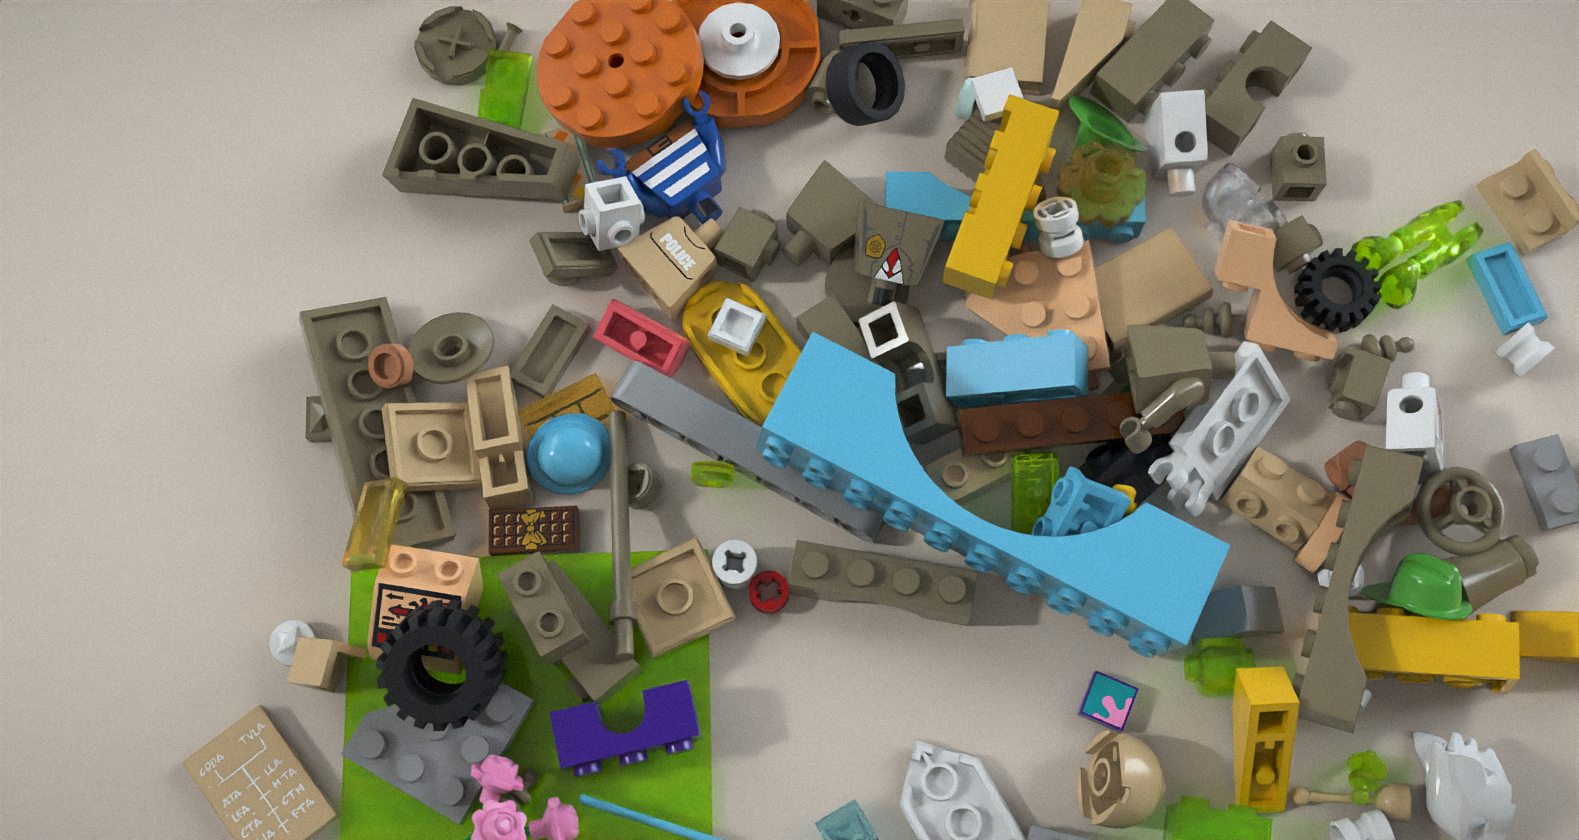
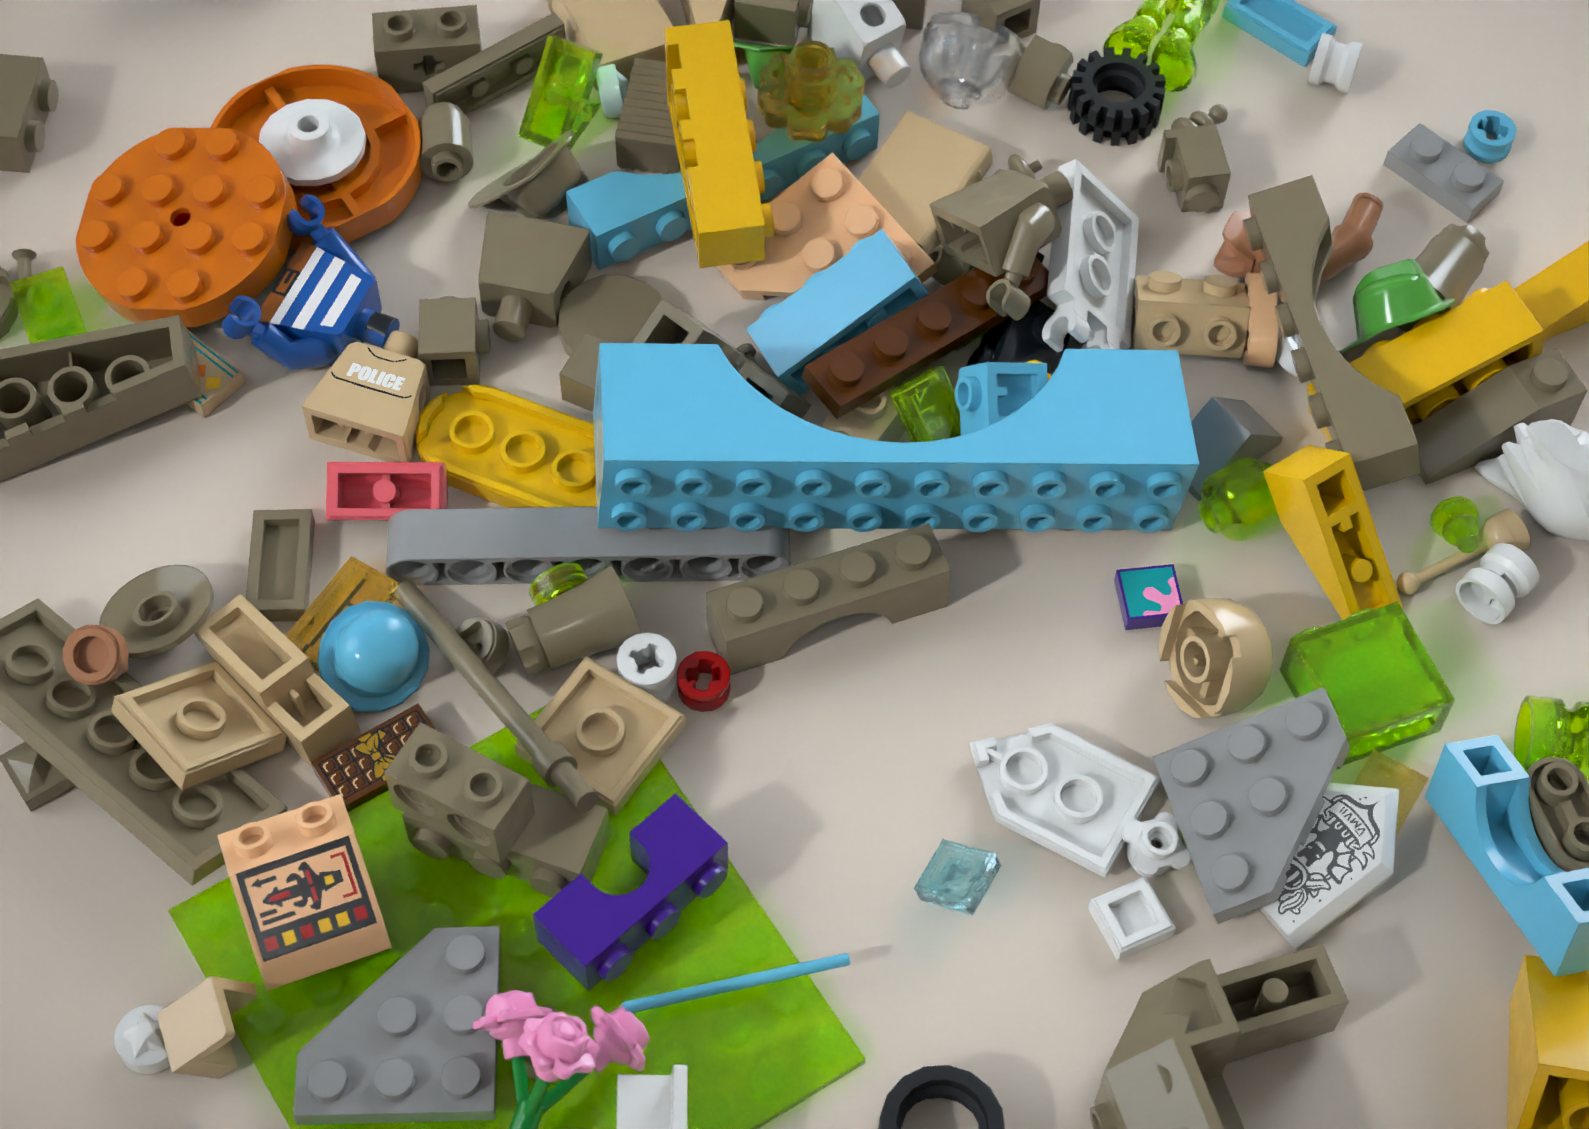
camera: 35 degrees left, 15 degrees down
(374, 524) = (187, 822): clear yellow tile -> none
(423, 695) = (431, 928): black tyre -> none
(569, 256) = (247, 445): dark tan tile -> none
(611, 213) = (272, 371): white brick -> none
(706, 507) = (574, 624): none -> dark tan plant
(737, 327) = (492, 426): white tile -> none
(842, 86) = (461, 123): black tyre -> none
(875, 146) = (539, 184): none -> dark tan piece
(892, 248) = (622, 254): dark tan torso -> none
(934, 86) = (561, 92): none -> clear neon green slope
(992, 92) = (638, 62): white tile -> none
(1058, 227) = (792, 148): white wheel -> none
(1247, 262) = (1010, 91): light nougat arch -> none
(1416, 422) = (1275, 157): white torso -> none
(1450, 707) = (1485, 417): none -> dark tan slope
(1480, 502) = (1383, 214): dark tan piece -> none

